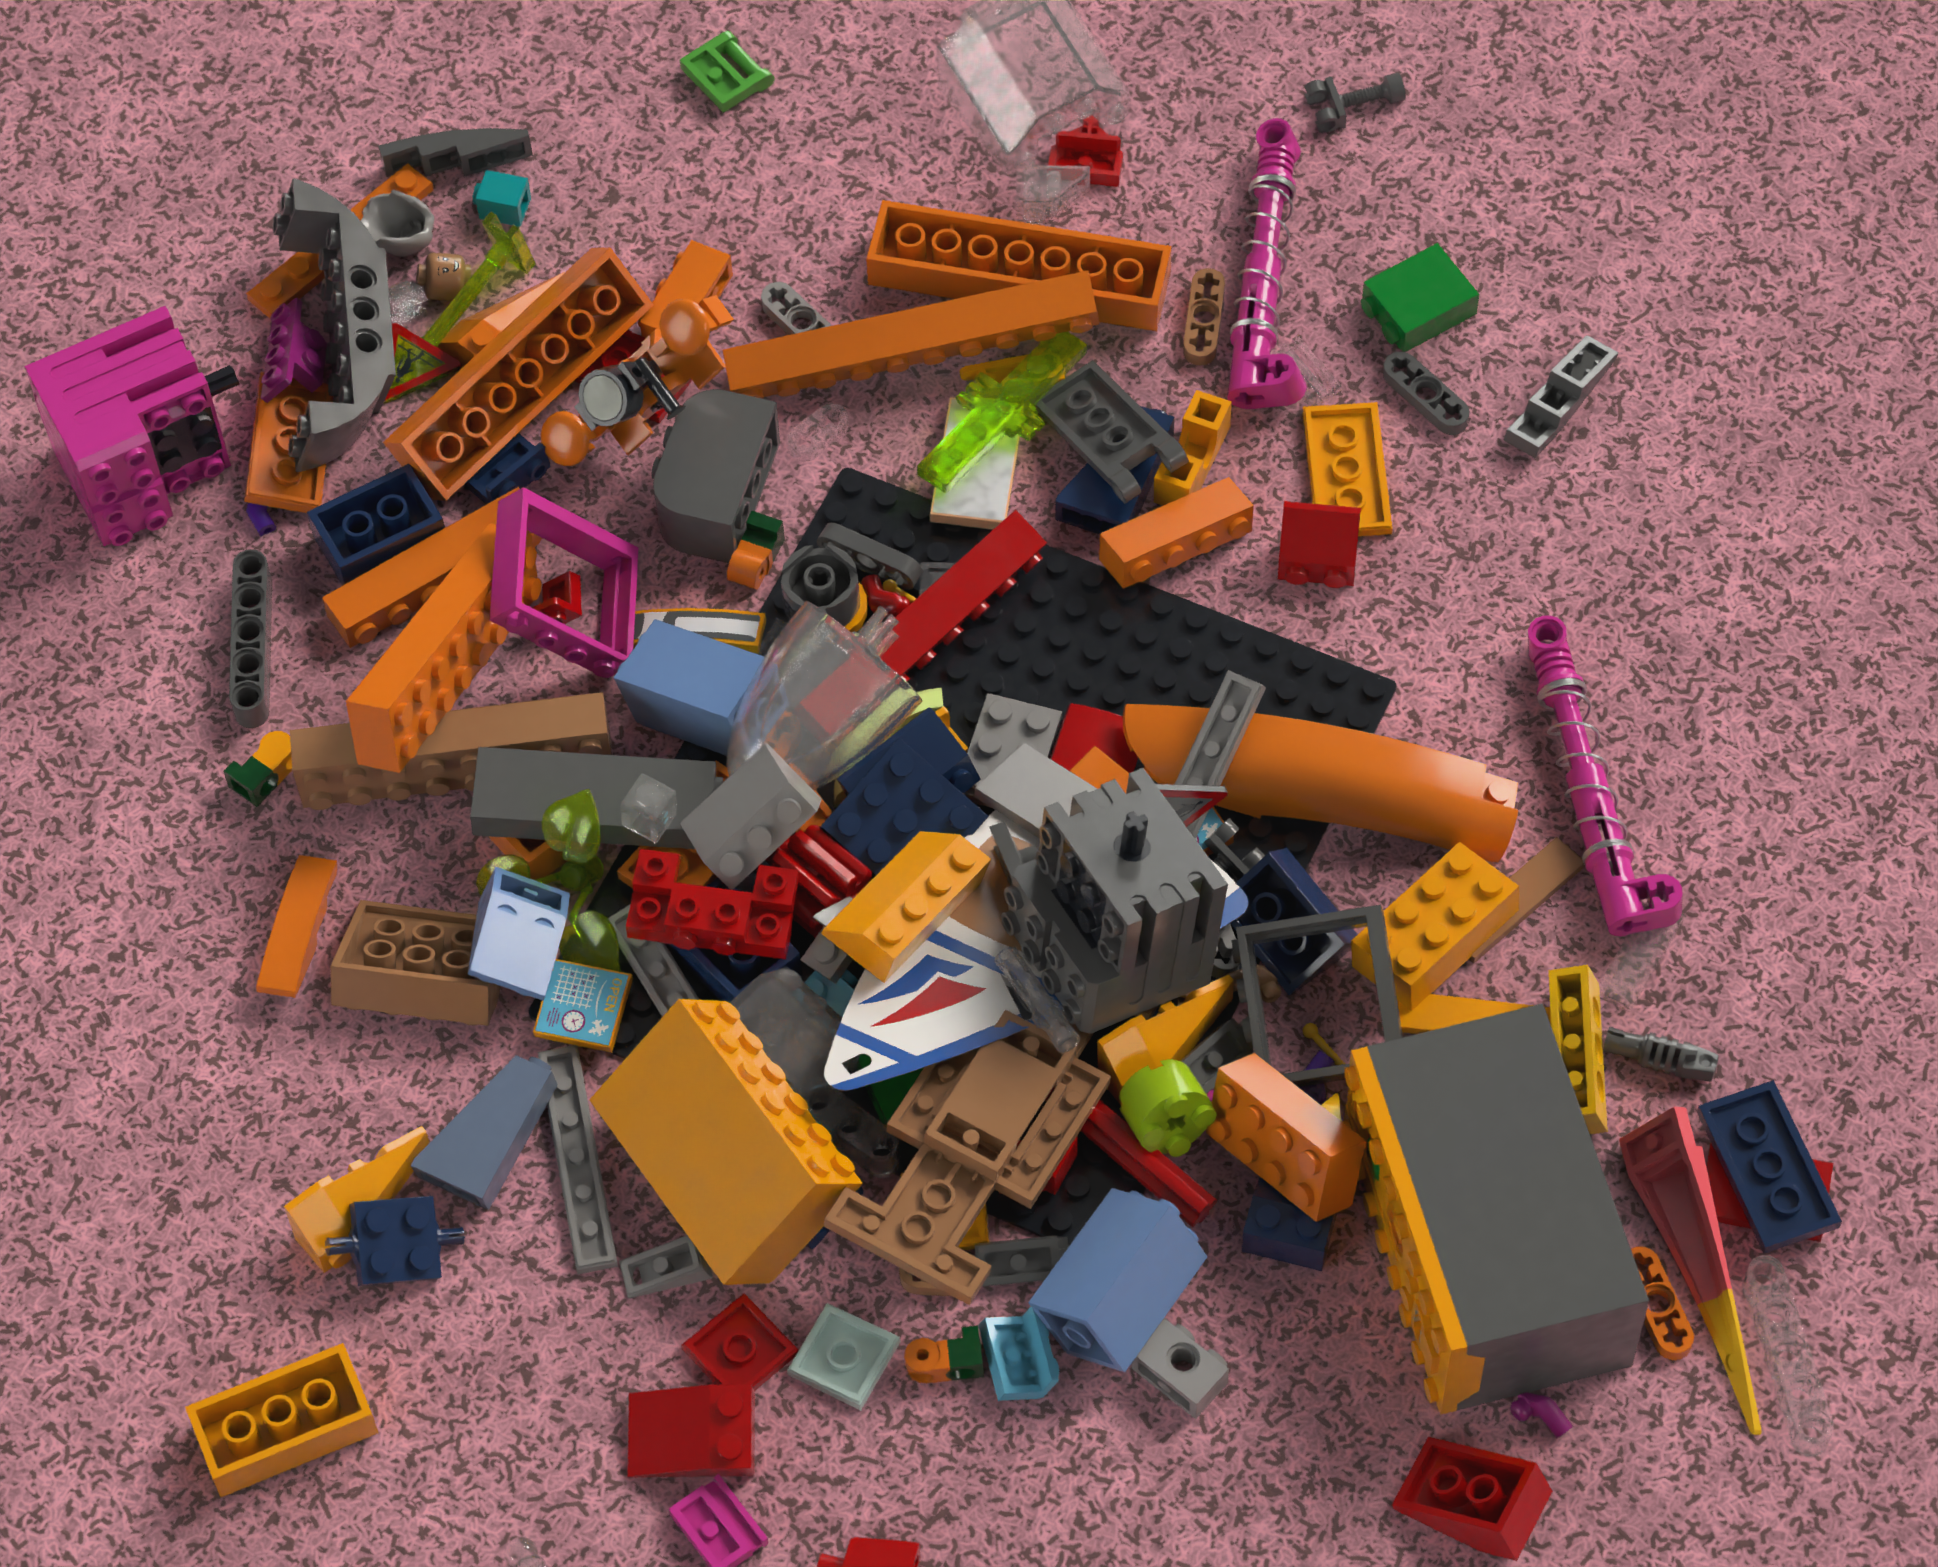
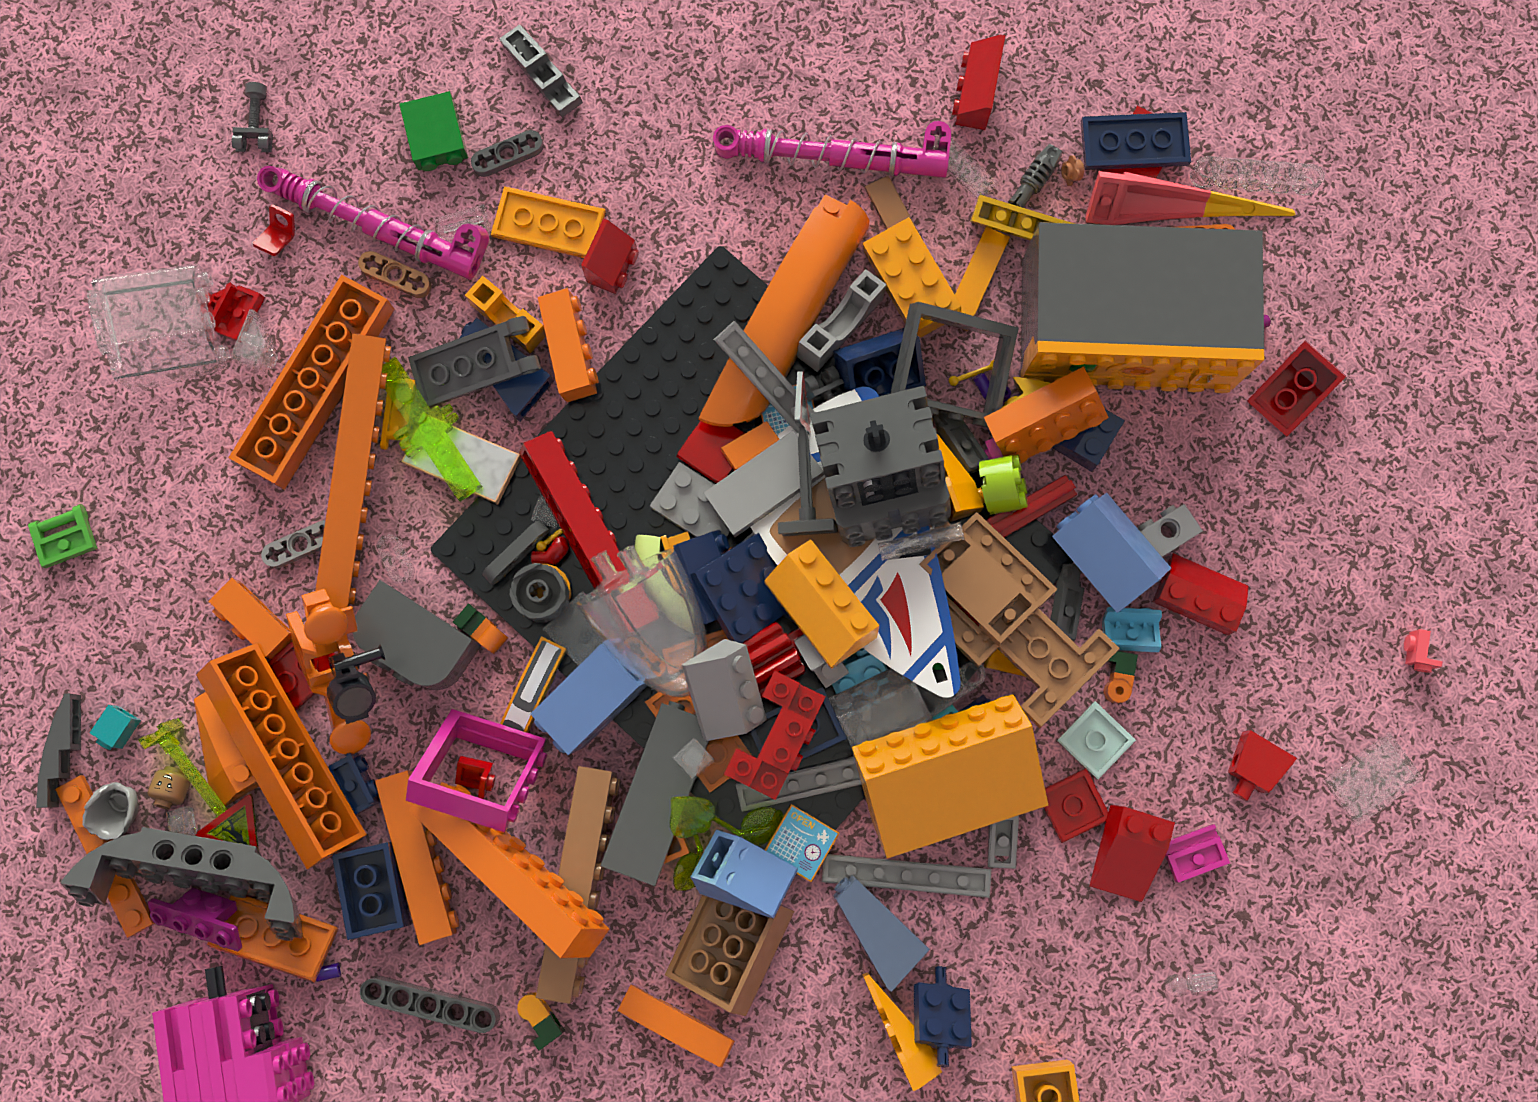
camera: 75 degrees left, 20 degrees up
(1106, 1439) = (1202, 595): none -> red slope
(1204, 170) = (276, 235): none -> red bracket
(1371, 867) = (830, 335): none -> light grey arch
(1691, 1097) = (1072, 170): none -> nougat plate
(1770, 937) = (978, 82): none -> red slope

